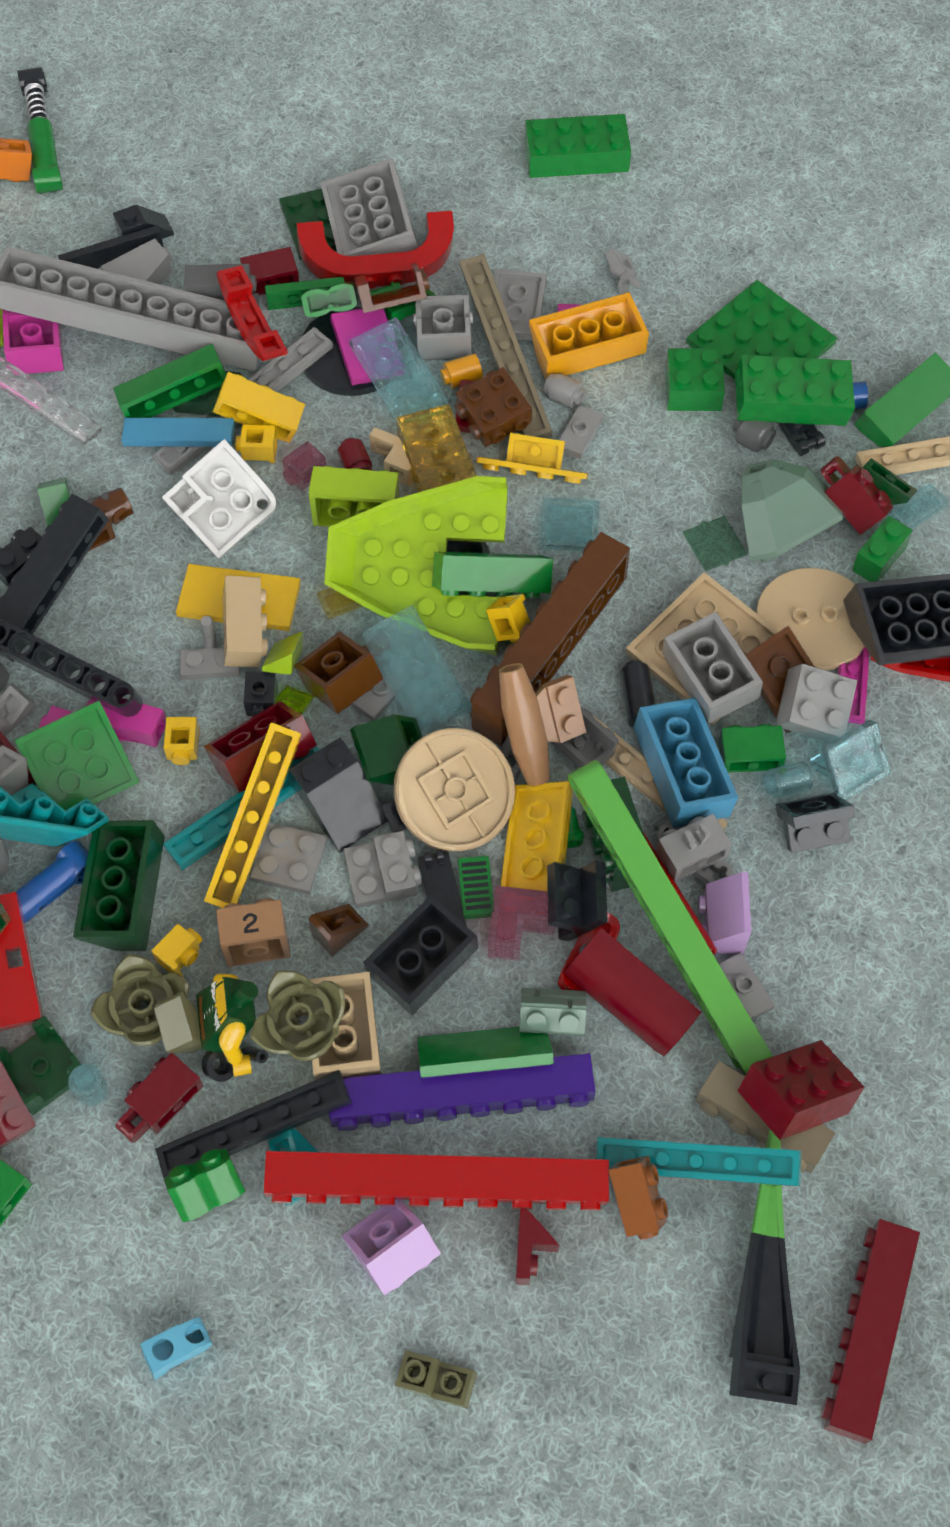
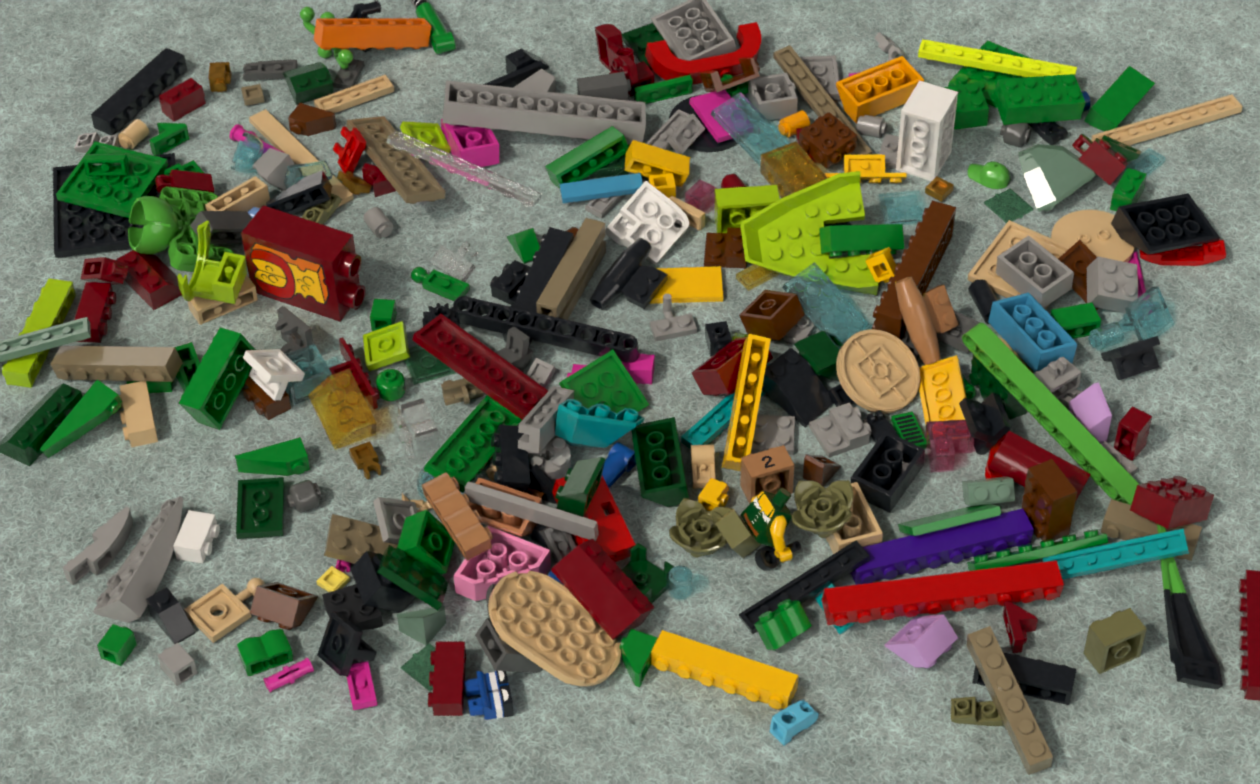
camera: 10 degrees left, 15 degrees down
(92, 566) = (574, 271): none -> dark tan brick
(105, 1243) = (724, 670): none -> yellow brick
(158, 1097) = (732, 582): dark red brick -> none
(171, 580) = (630, 277): none -> black plate
(179, 731) = (671, 378): yellow brick -> none
(179, 896) = (702, 465): none -> tan plate
(243, 621) = (692, 294): tan brick -> none
(247, 315) = (633, 105): red slope -> none
(257, 237) = (612, 52): none -> dark red plate
(279, 487) = (695, 216): none -> tan plate
(284, 655) = (728, 311): lime slope -> none
(307, 551) = (725, 249): none -> reddish brown plate
(311, 366) = (685, 133): none -> light grey plate
(322, 300) = (683, 89): green brick -> none
(396, 458) = (758, 177): tan slope -> none
(476, 1390) = (1009, 700): none -> dark tan brick
(517, 1334) = (1039, 678): none -> black brick
(589, 1125) = (1046, 549): none -> green plate
(624, 418) = (926, 130): none -> white brick
(624, 1056) = (1048, 501): none -> reddish brown brick
(626, 502) = (939, 188): none -> pearl gold plate
(638, 1197) = (1081, 582): dark orange brick -> none
(657, 1306) = (1114, 640): none -> olive brick
(702, 490) = (991, 175): none -> bright green cap
(756, 318) = (991, 60): none -> neon yellow plate
(779, 954) = (1132, 433): none -> dark red brick

